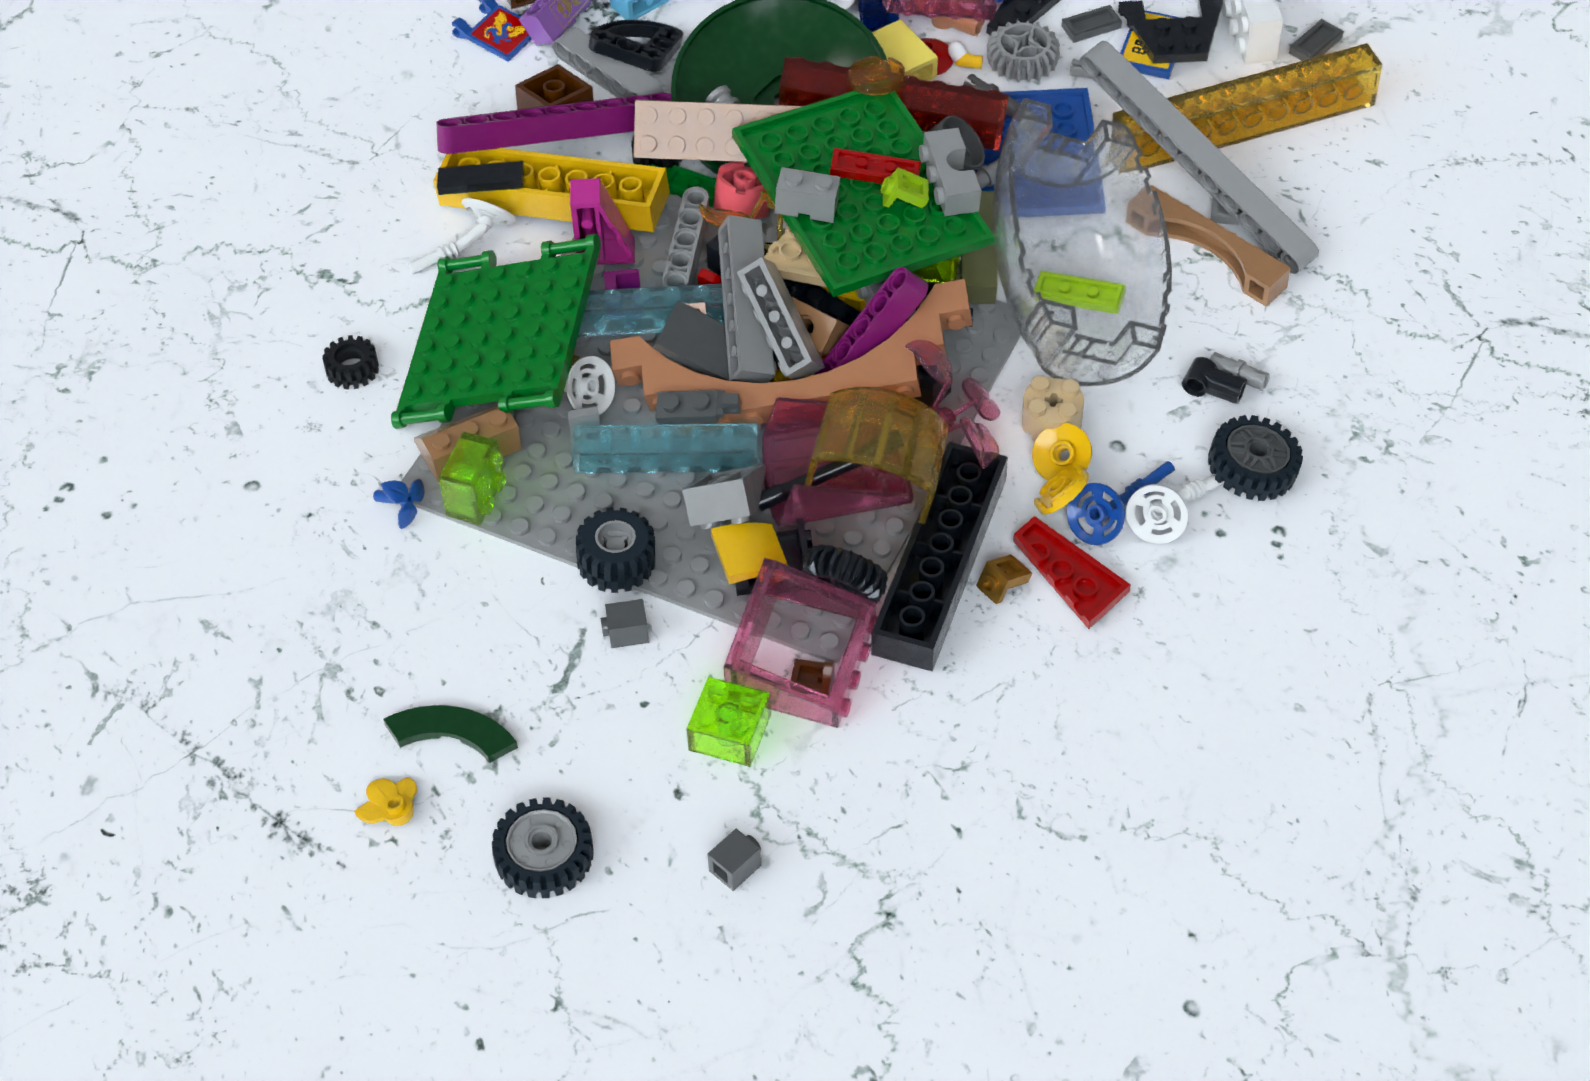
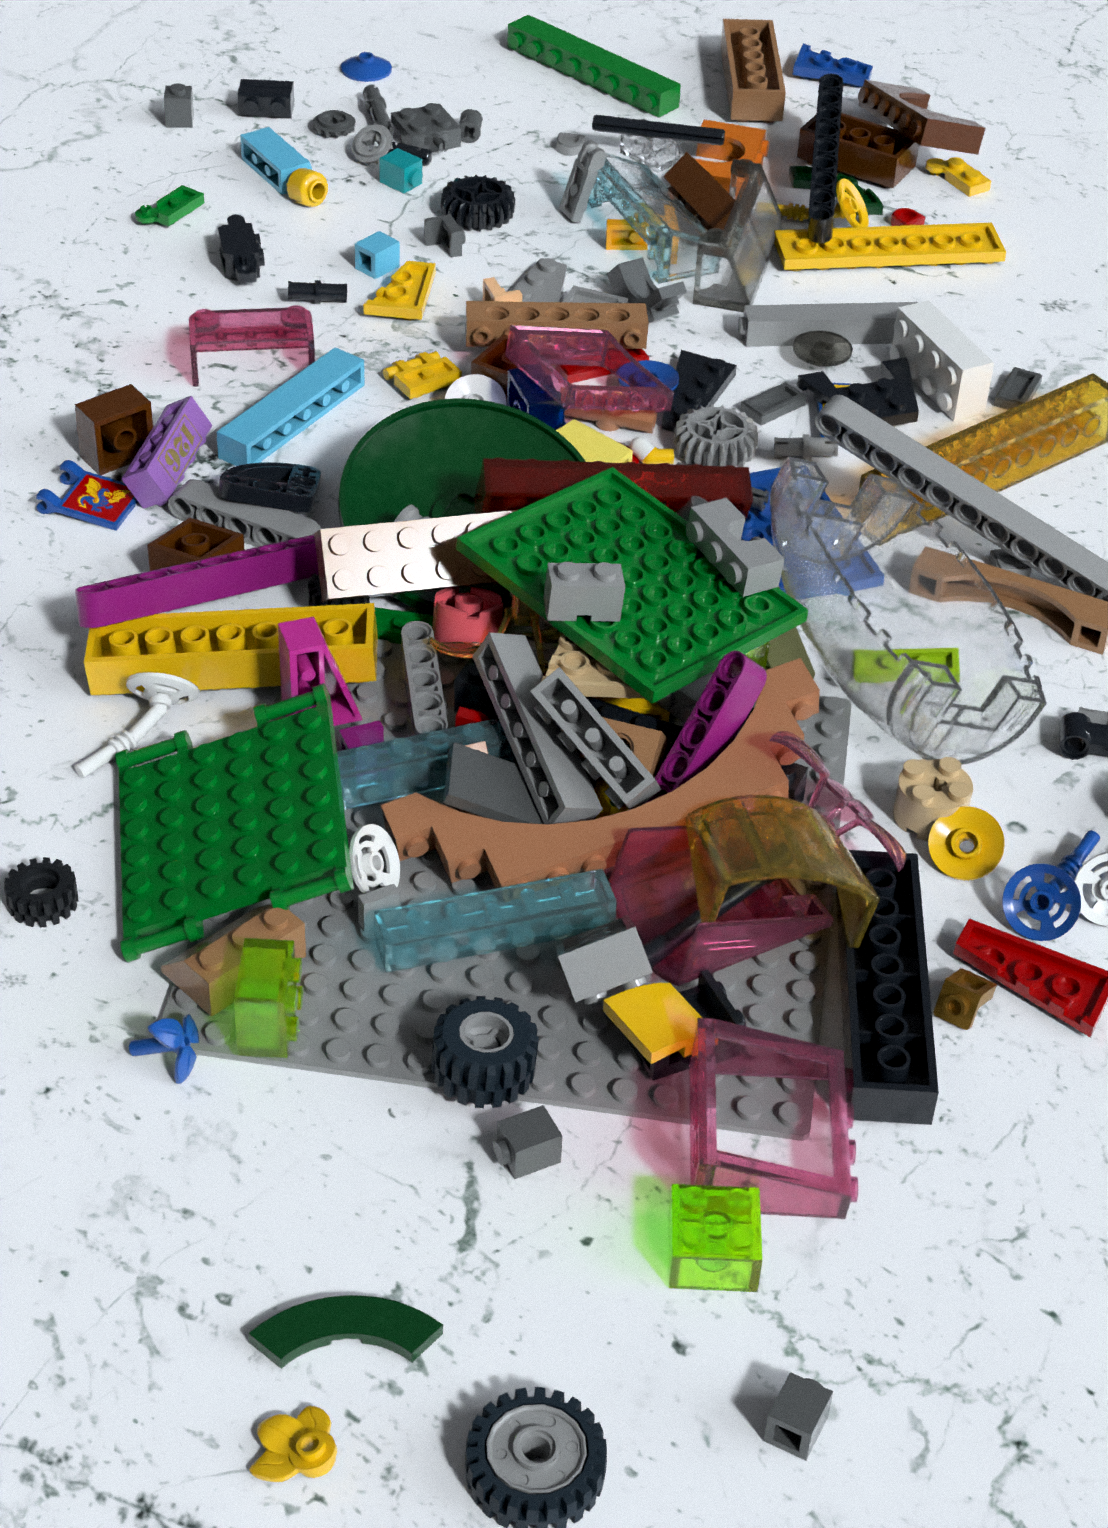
camera: 20 degrees left, 10 degrees down
(480, 178) = (146, 648): black tile -> none
(695, 406) = (522, 860): dark grey hinge -> none
(814, 675) = (798, 1154): reddish brown tile -> none
(846, 571) = (798, 1015): black gear -> none
(868, 166) = (645, 556): red tile -> none
(876, 76) = (599, 463): clear orange tile -> none
(906, 187) = (689, 568): lime bracket -> none
(1061, 489) = (989, 882): yellow tile -> none

